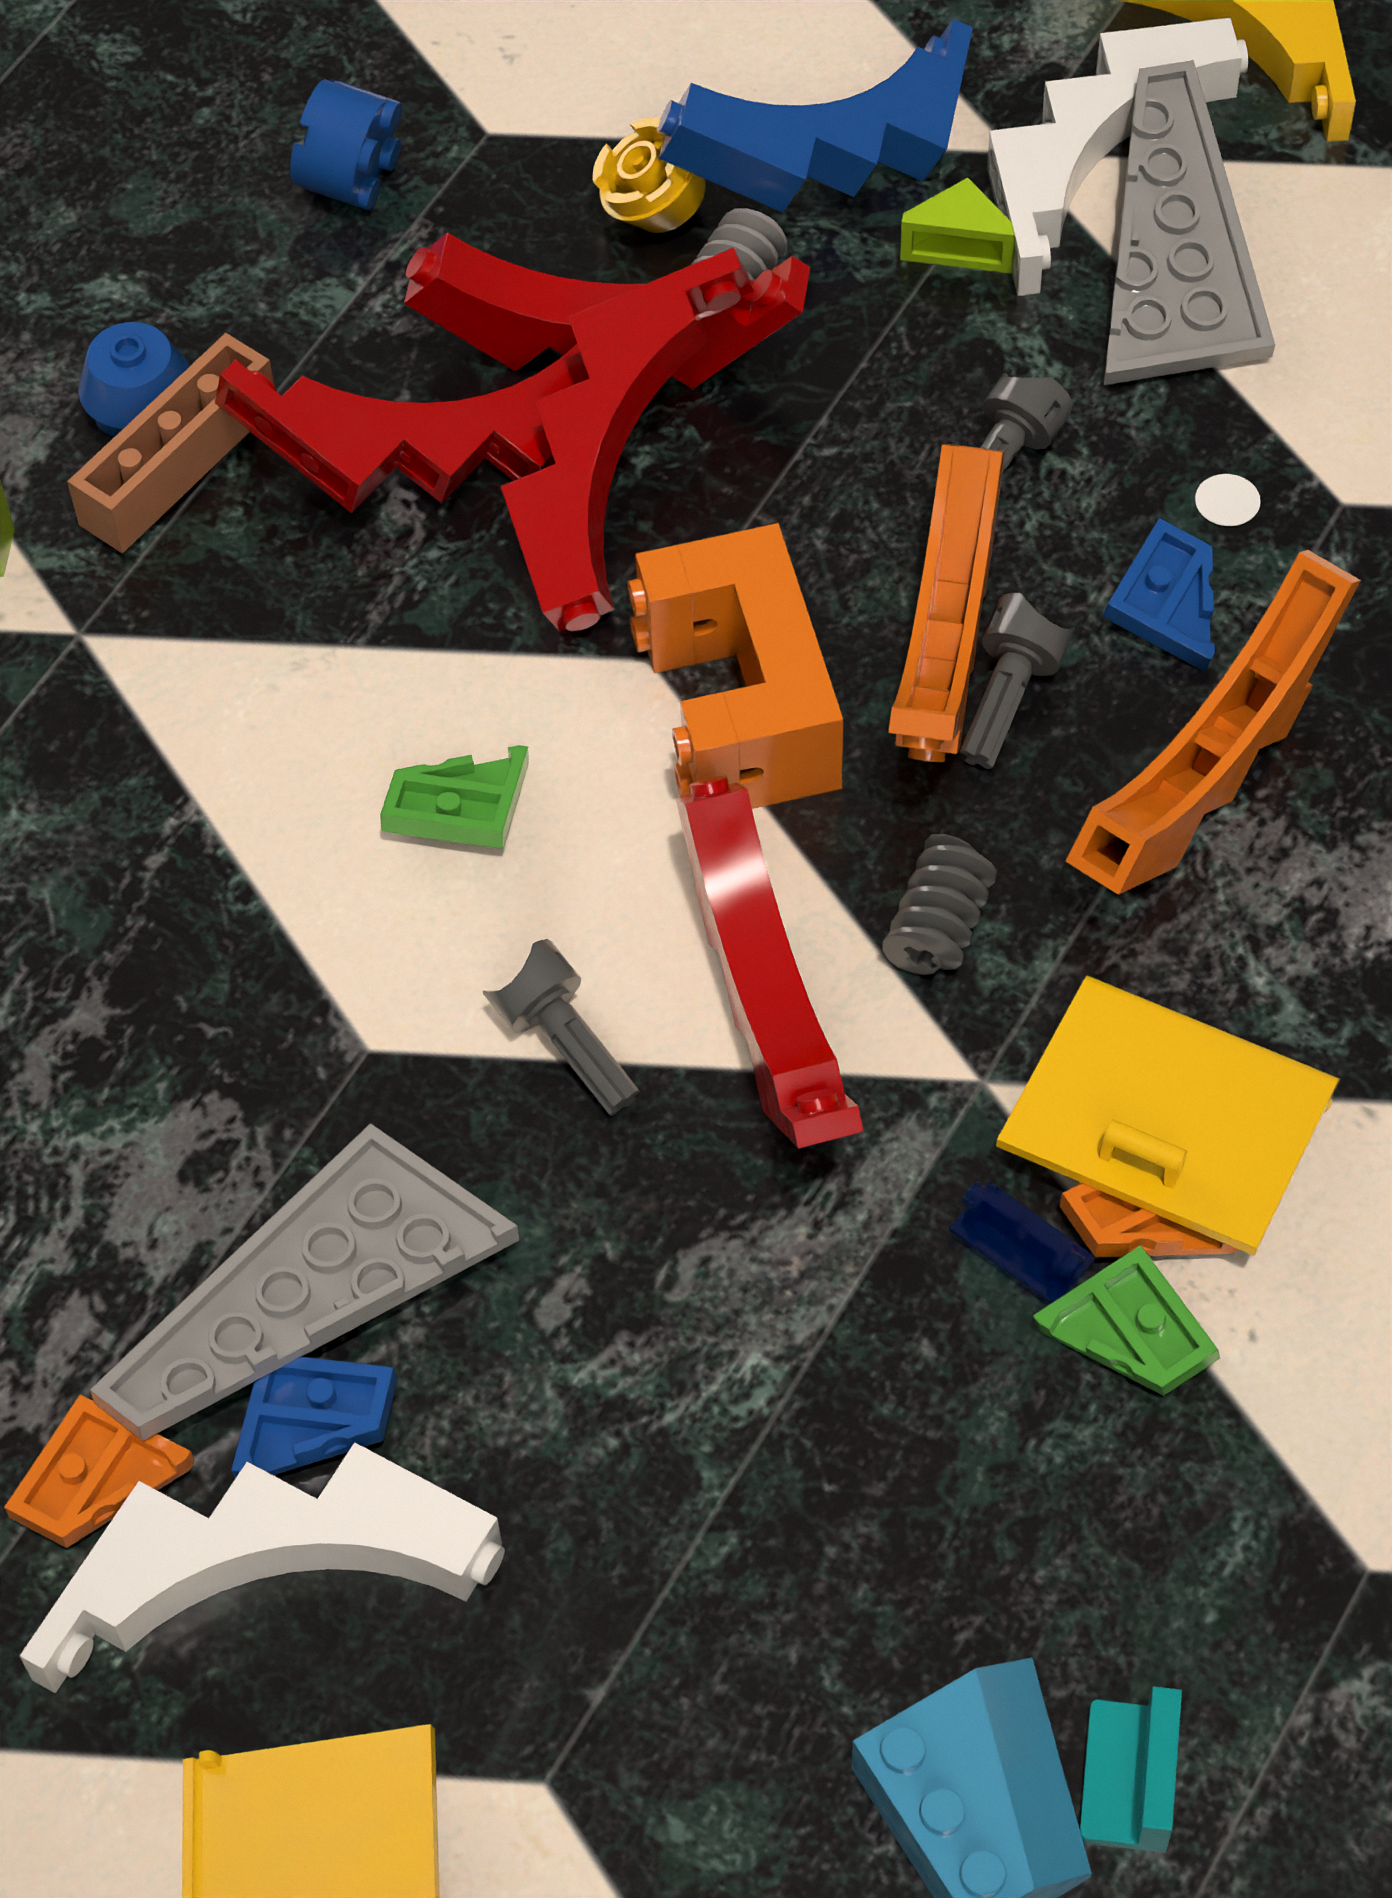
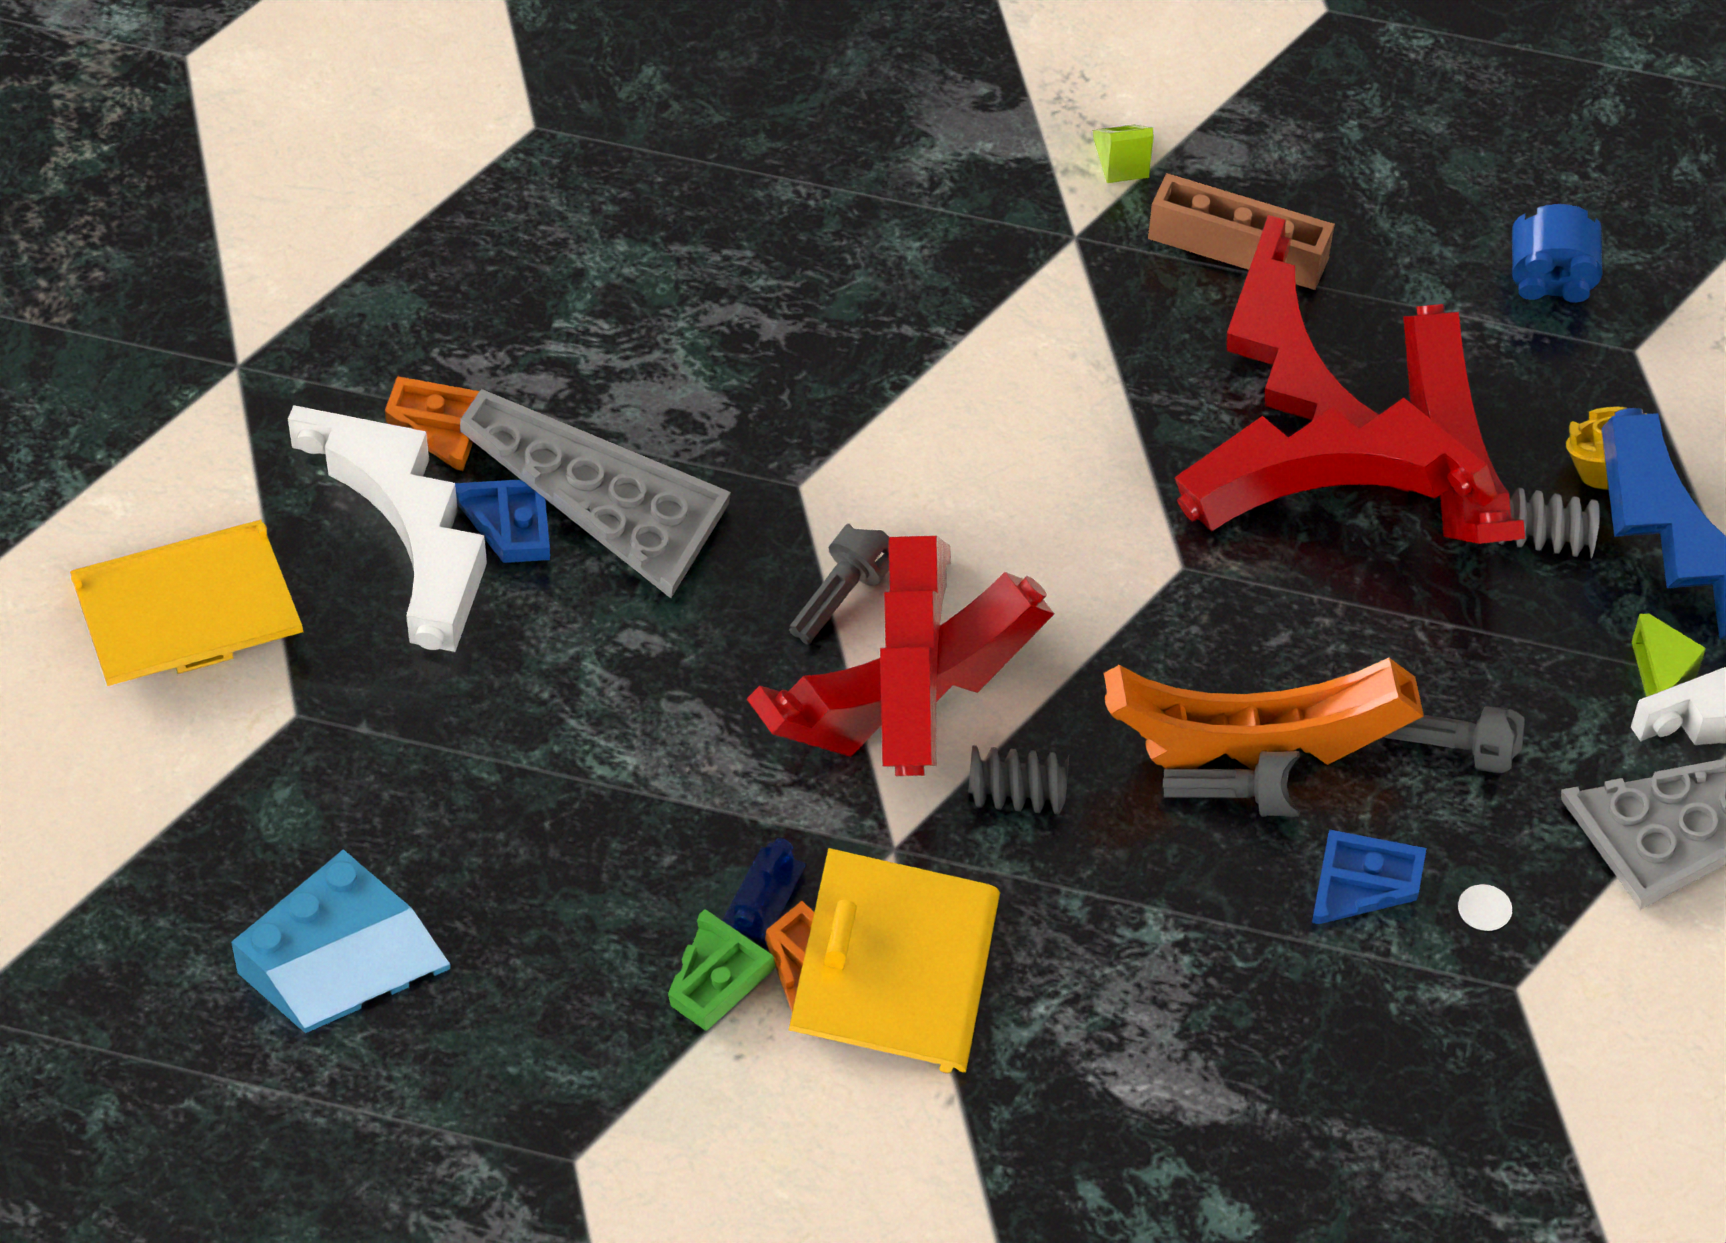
camera: 70 degrees right, 5 degrees down
(126, 372) = (1298, 186): blue cone -> none
(456, 799) = (1010, 479): bright green wing -> none
(721, 927) = (911, 652): none -> red arch
(745, 602) = (1217, 607): orange piece -> none
(1131, 1772) = (380, 1039): teal panel -> none
(1254, 705) = (1206, 921): orange arch -> none

